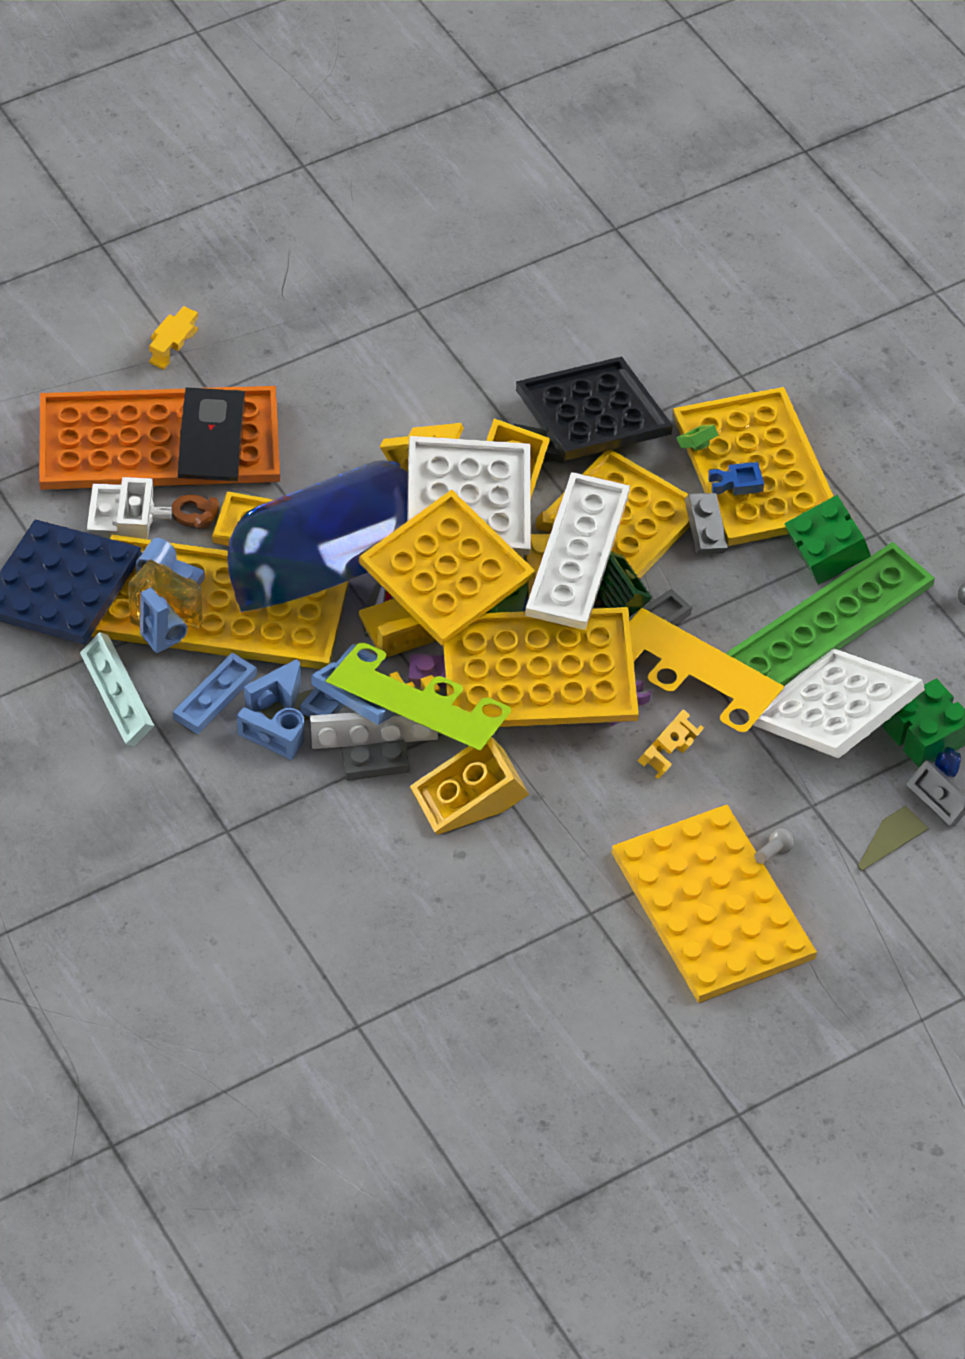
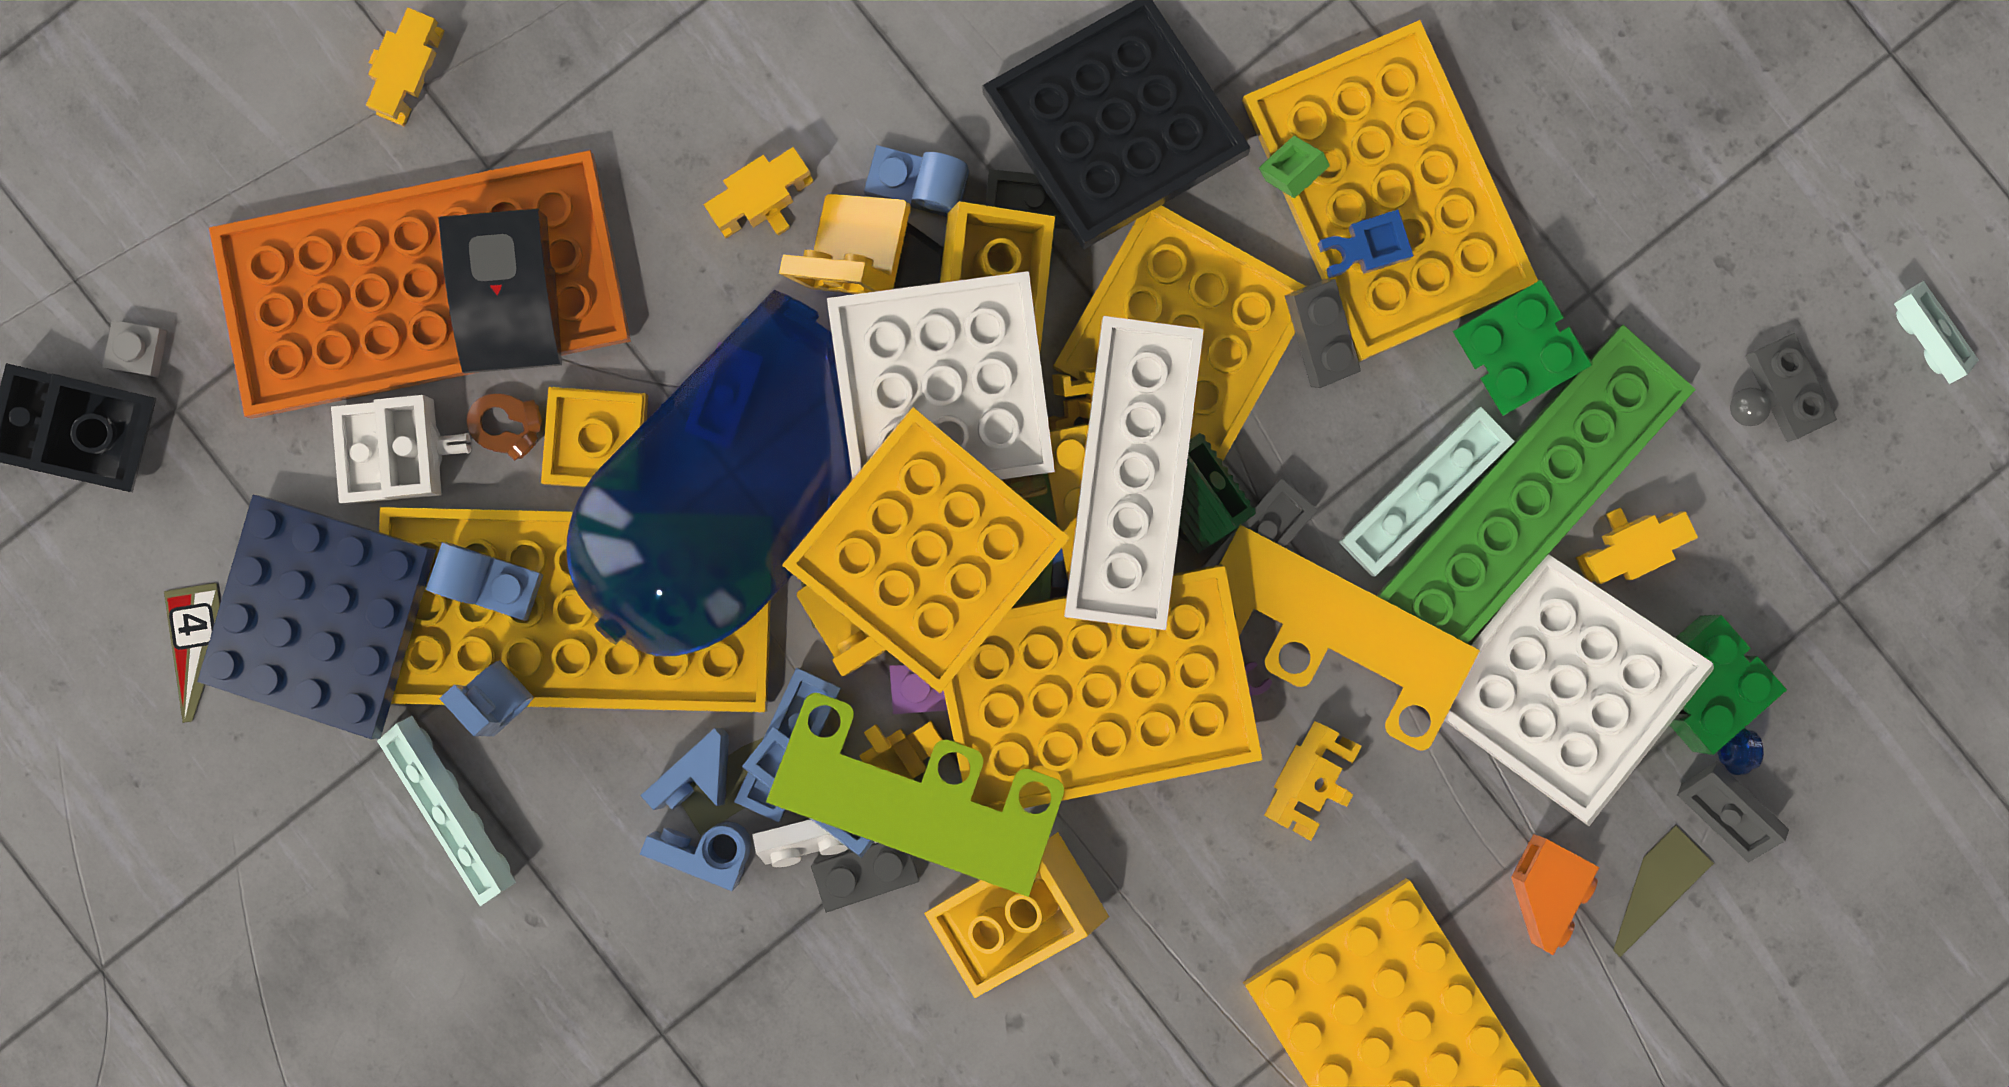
camera: 10 degrees left, 35 degrees up
(180, 592) = (455, 659): clear yellow bracket -> none
(214, 693) = (599, 792): medium blue plate -> none
(369, 415) = (759, 193): none -> yellow piece
(475, 425) = (925, 182): none -> medium blue plate
(759, 610) = (1426, 491): none -> light aqua plate
(780, 841) = (1496, 928): light grey bar -> none
(817, 816) = (1550, 890): none -> orange slope
(894, 647) = (1636, 545): none -> yellow piece

